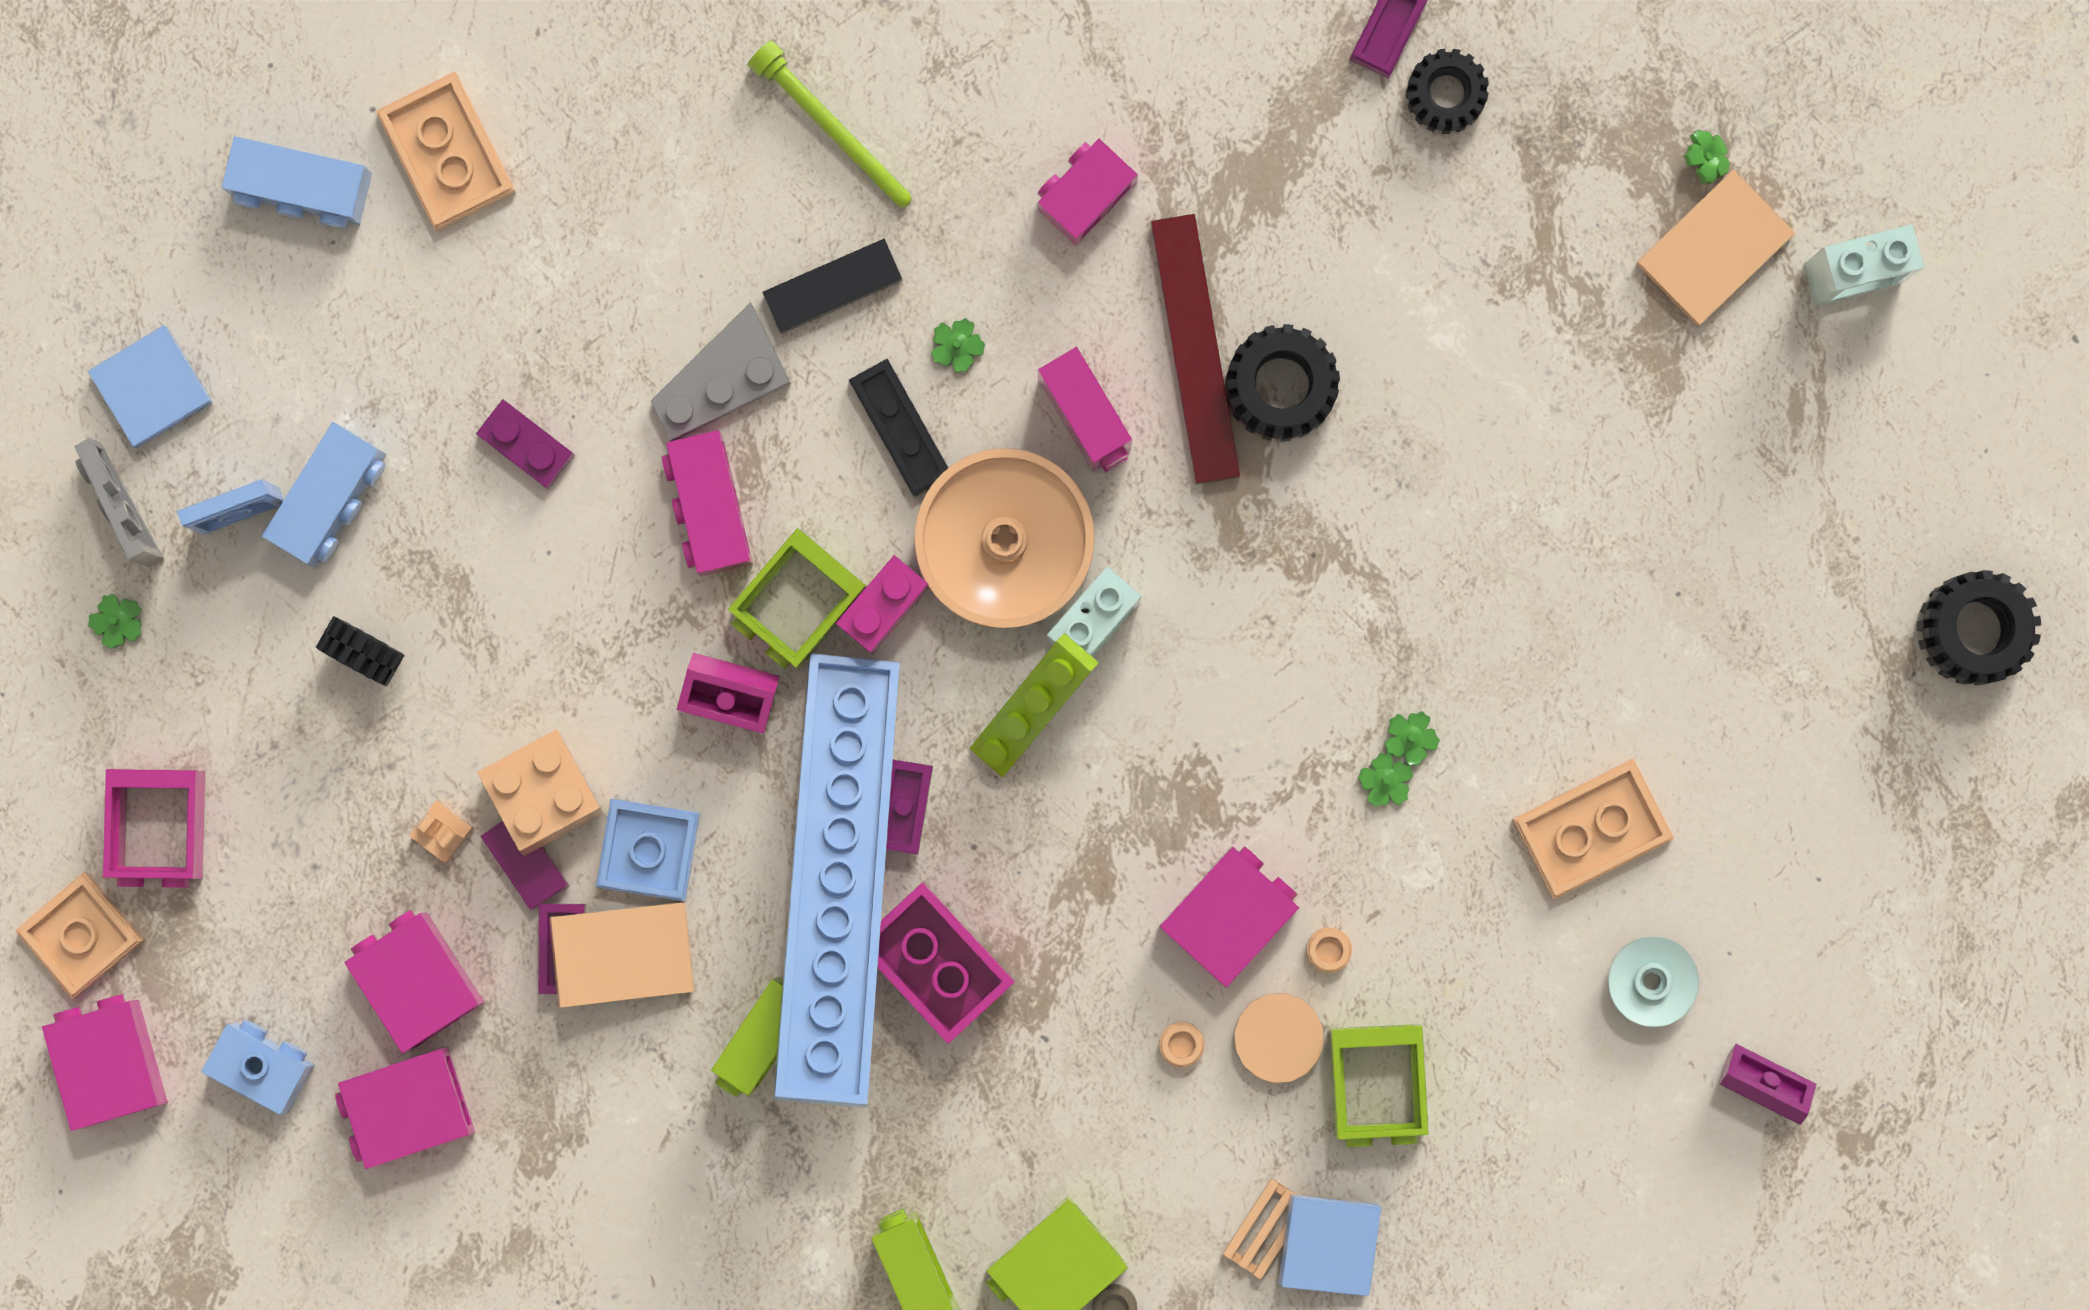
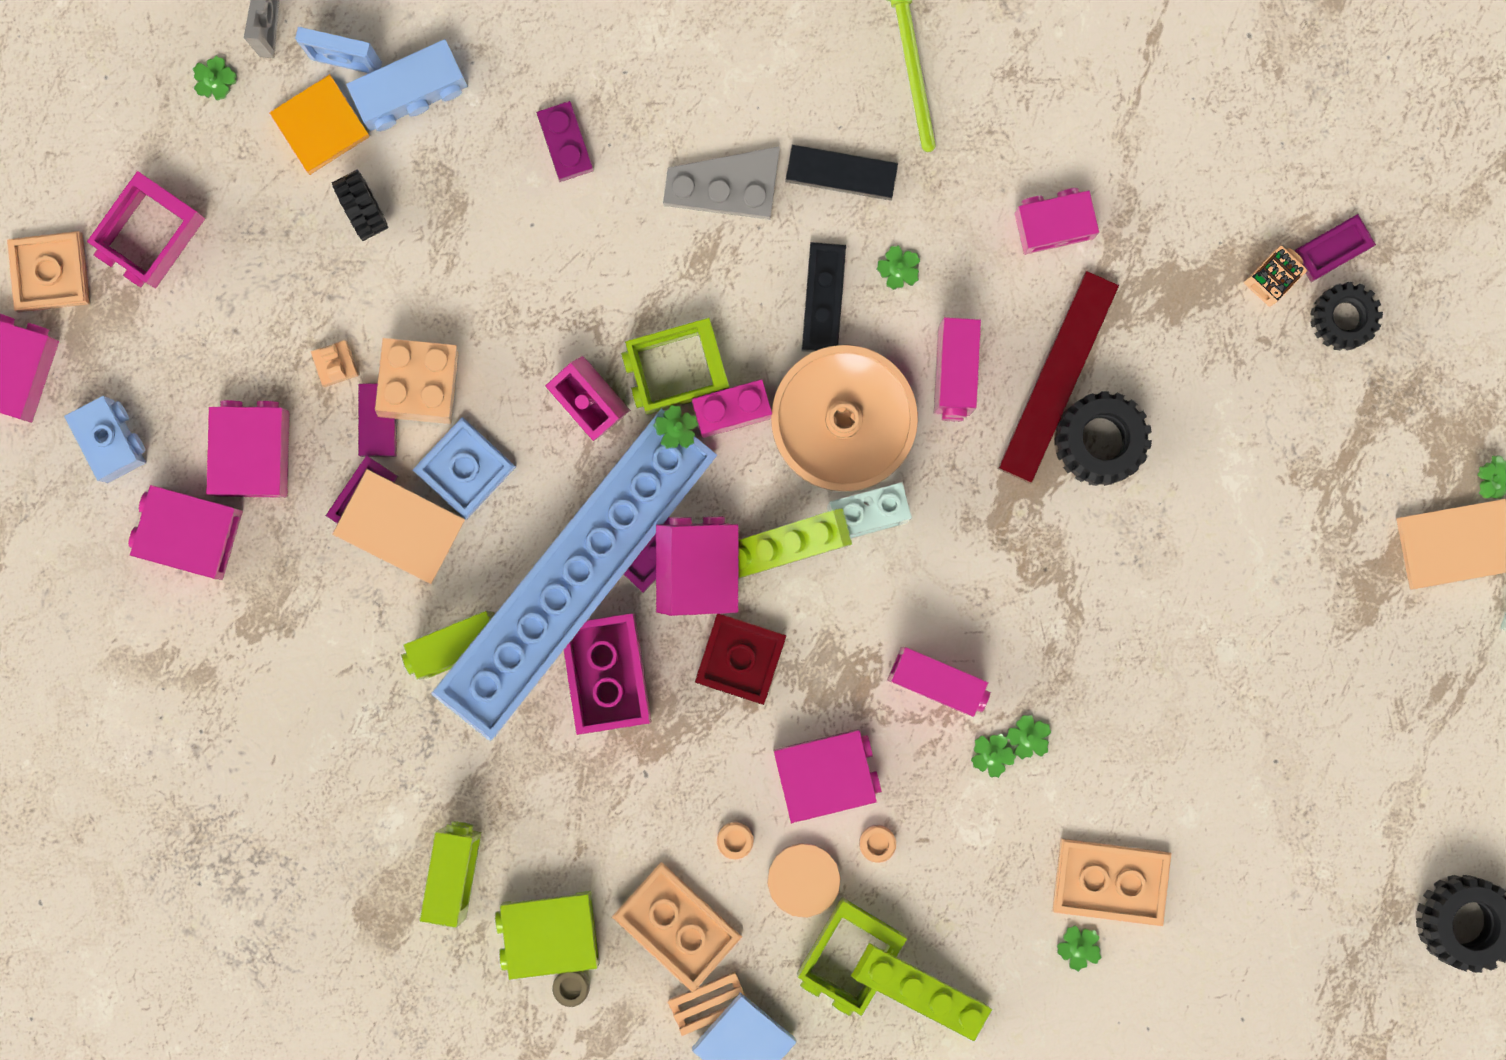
camera: 30 degrees right, 0 degrees up
(259, 595) = (319, 124): none -> light orange tile
(707, 504) = (659, 262): dark pink brick -> none
(839, 663) = (676, 428): none -> bright green plant
(956, 790) = (696, 567): none -> dark pink brick
(1063, 855) = (740, 659): none -> dark red plate
(1181, 1172) = (676, 927): none -> light nougat tile
(1281, 743) = (939, 682): none -> dark pink brick
(1347, 96) = (1276, 275): none -> brick
(1473, 1069) = (921, 992): none -> lime plate
(1605, 917) = (1079, 947): none -> bright green plant
(1676, 985) = (1097, 1027): light aqua dish -> none

